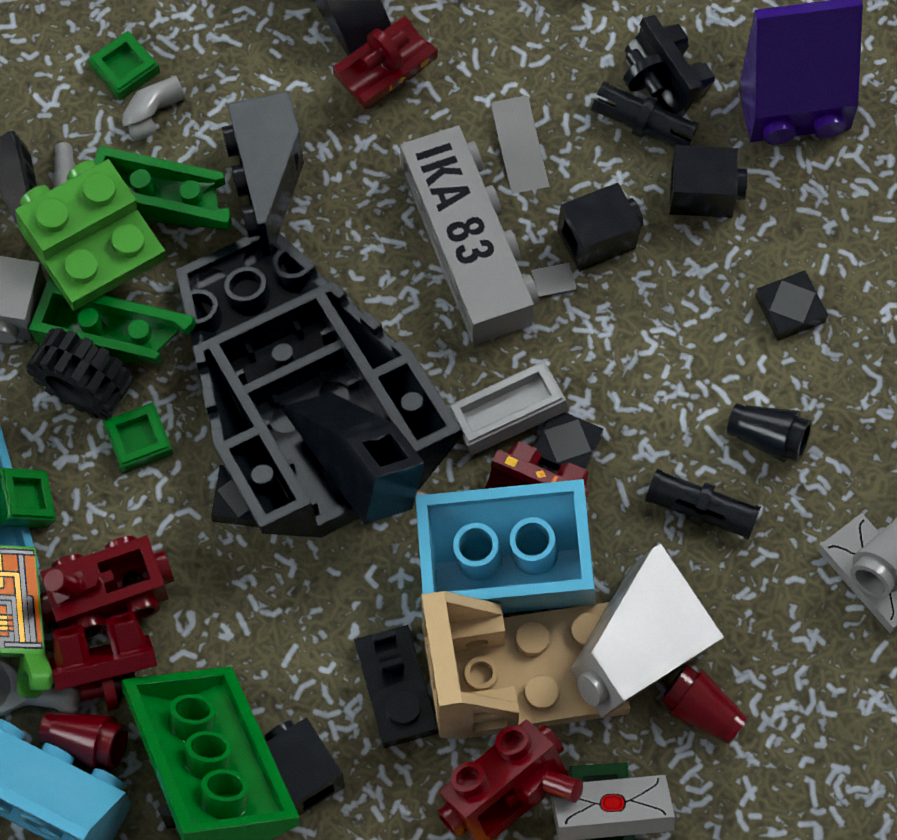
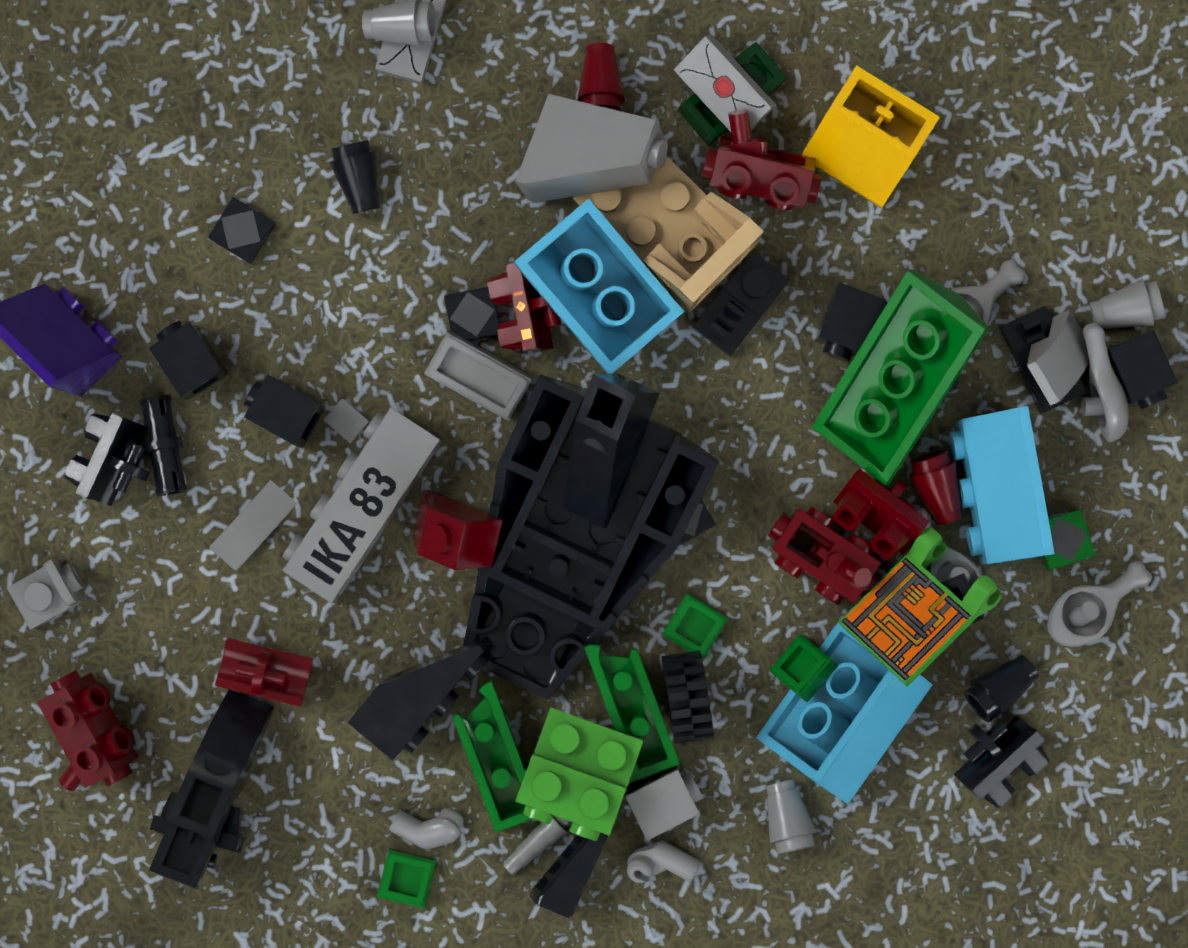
camera: 125 degrees left, 20 degrees up
(379, 276) = (455, 533): none -> dark red slope
(702, 504) = (449, 185): black pin -> none

